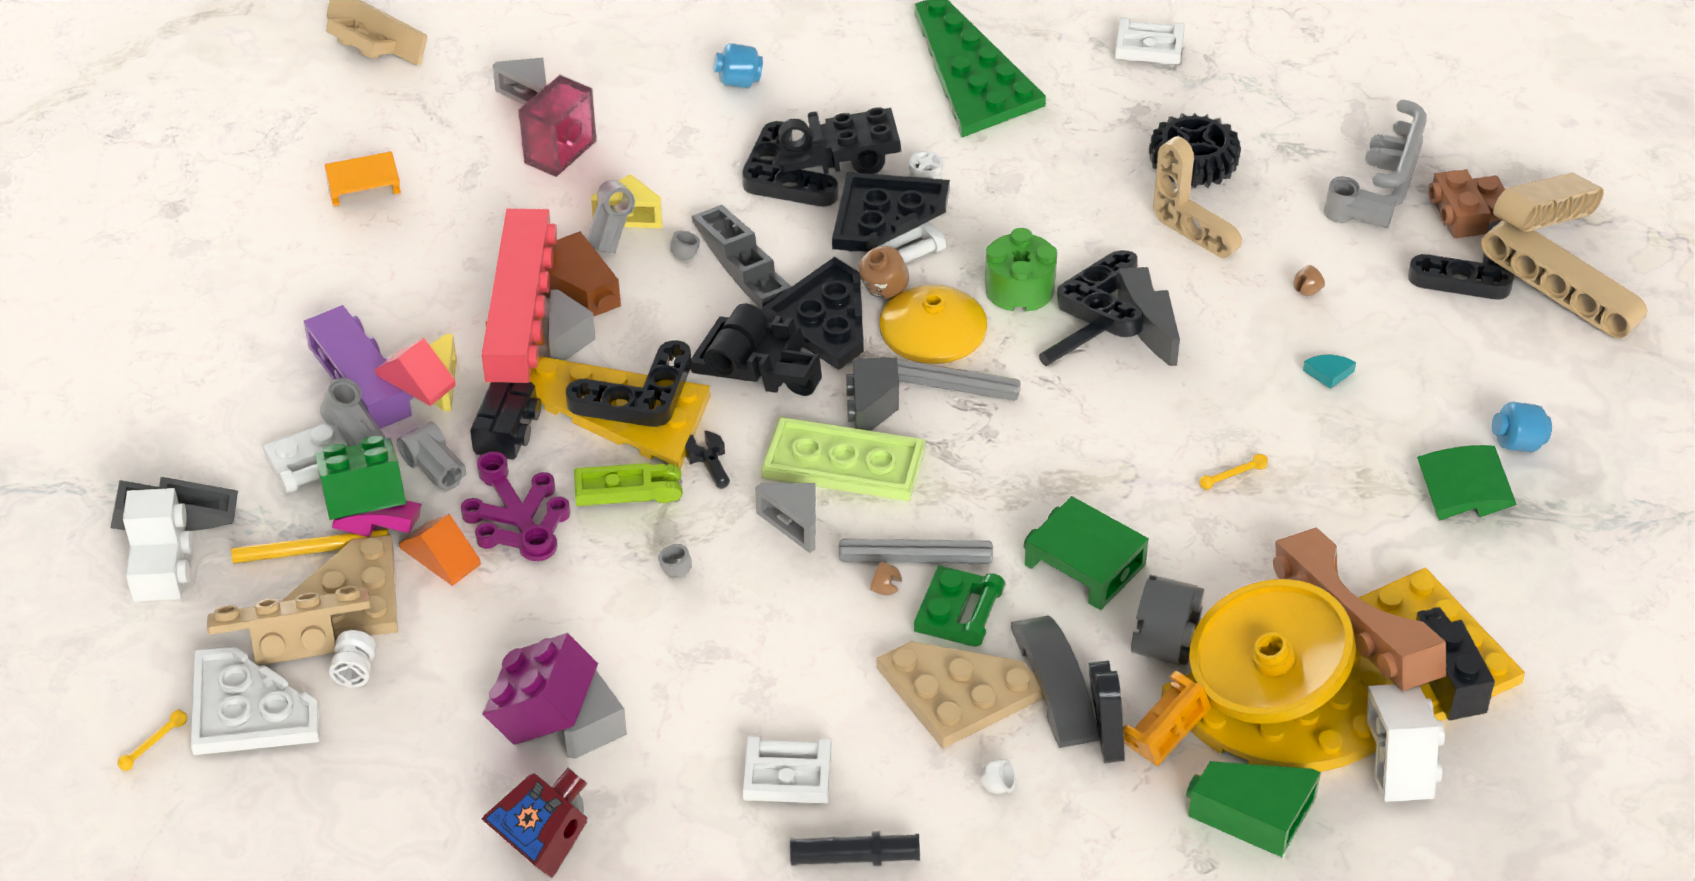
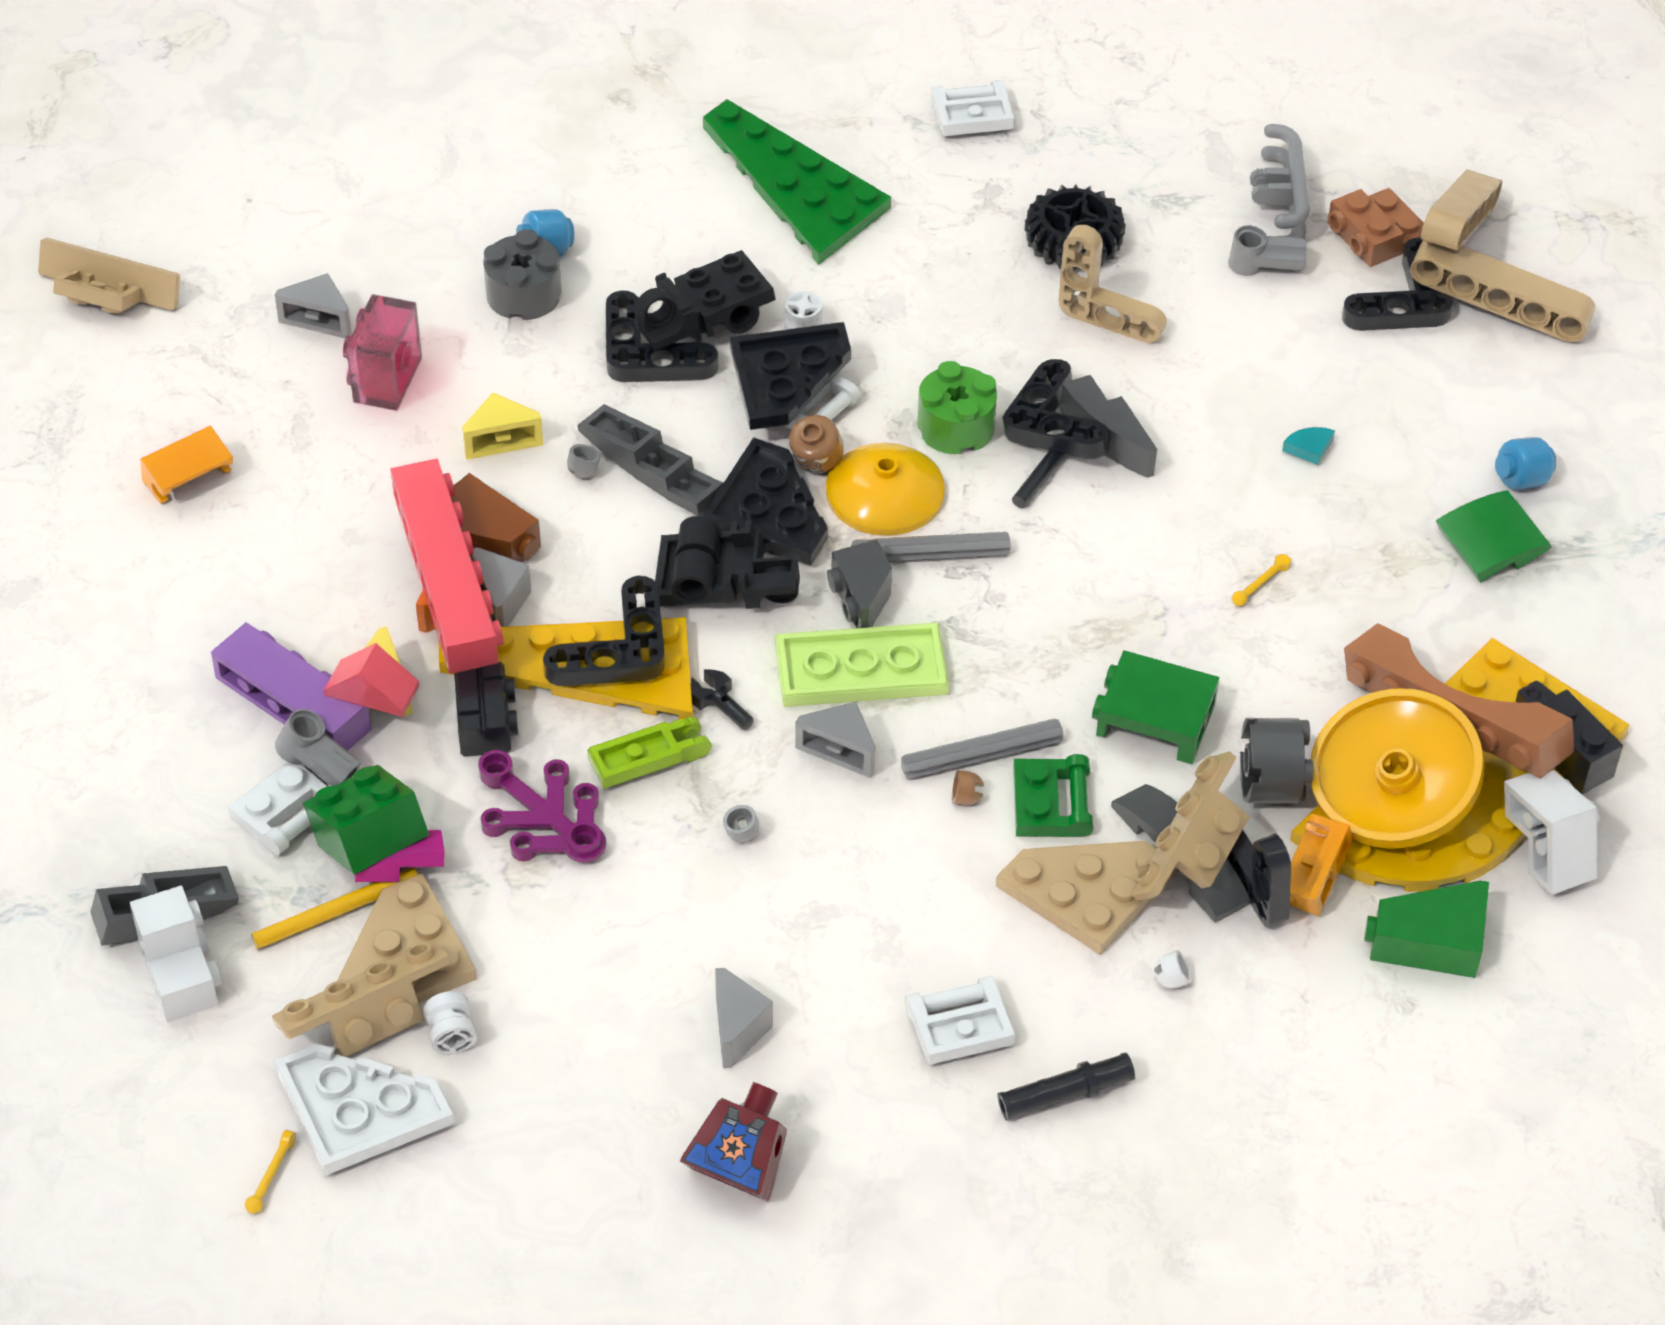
camera: 20 degrees left, 5 degrees up
(428, 451) = (417, 767): light grey piece -> none
(442, 549) = (482, 873): orange slope -> none
(540, 688) = (676, 1004): magenta brick -> none
(610, 220) = (495, 448): light grey piece -> none
(703, 92) = (522, 275): none -> dark grey brick
(1066, 664) = (1199, 834): none -> tan bracket
(1308, 281) = (1250, 349): medium nougat hinge -> none

